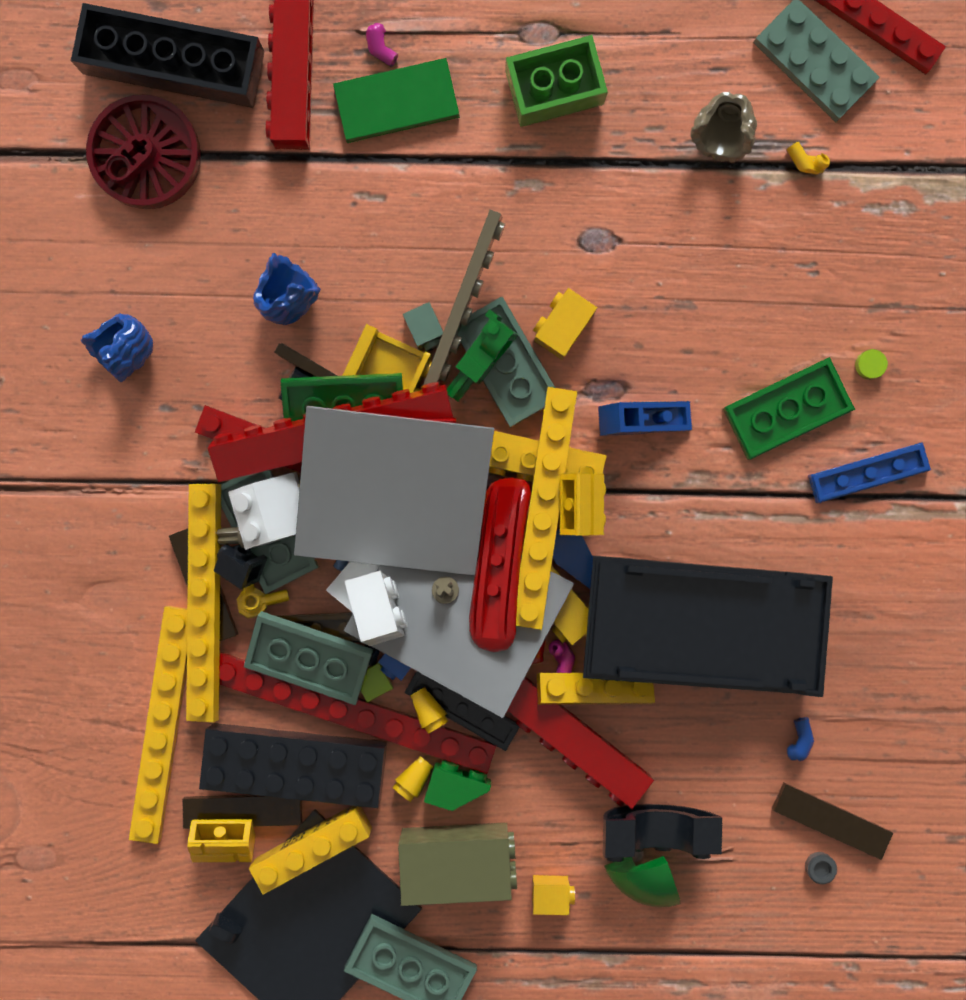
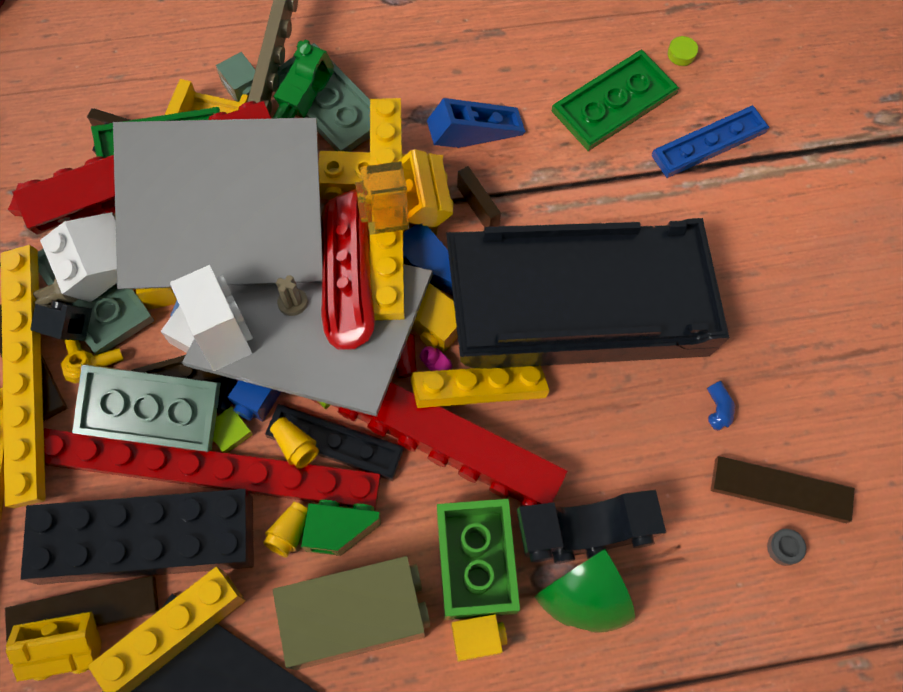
camera: 15 degrees left, 20 degrees down
(284, 291) = (95, 67): blue hair -> none
(543, 528) = (383, 198): none -> clear yellow brick
(563, 837) = (477, 559): none -> bright green brick
(564, 323) = (379, 57): yellow brick -> none
(631, 502) = (478, 198): none -> dark brown tile

